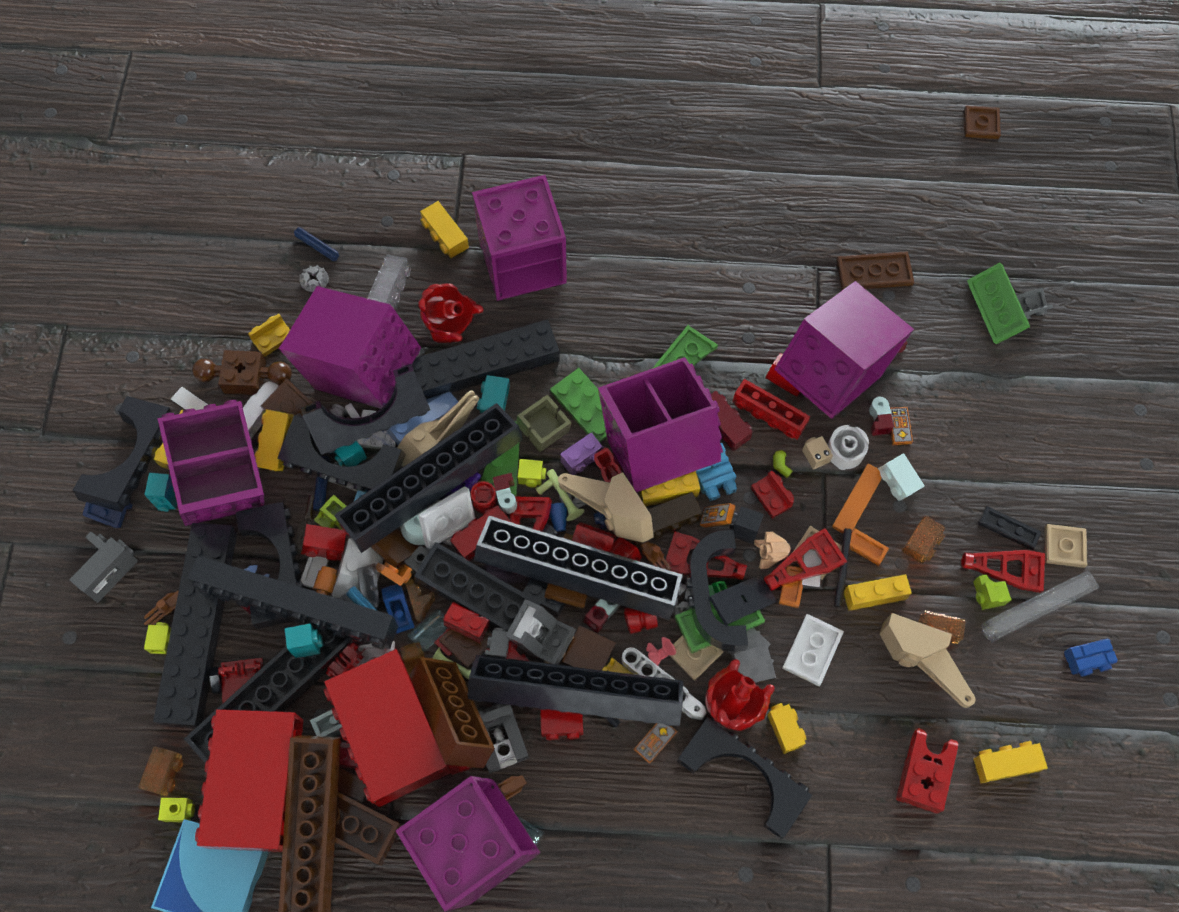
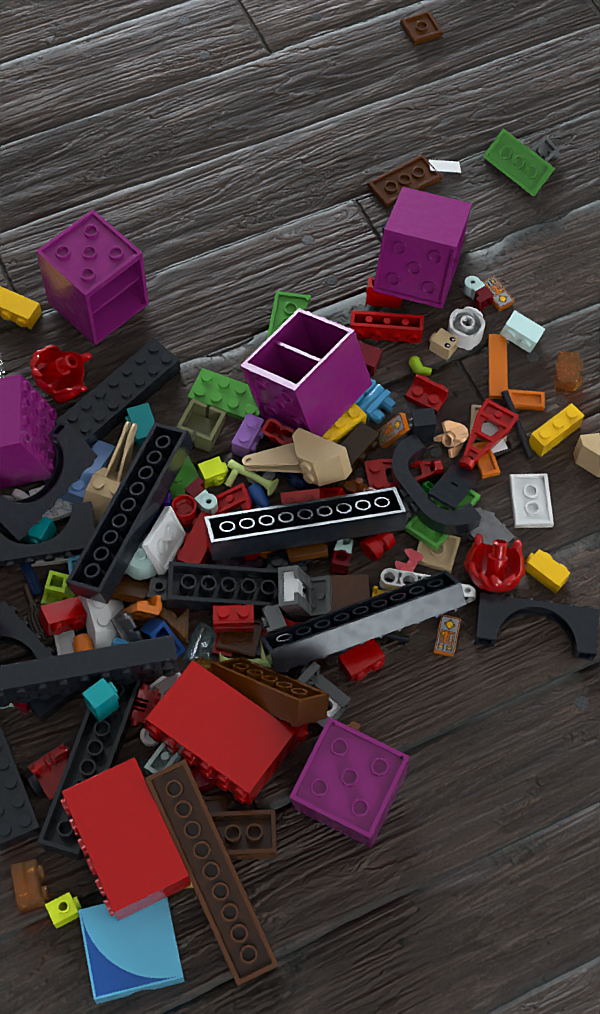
camera: 30 degrees left, 5 degrees down
(924, 273) = (446, 166): none -> white sticker

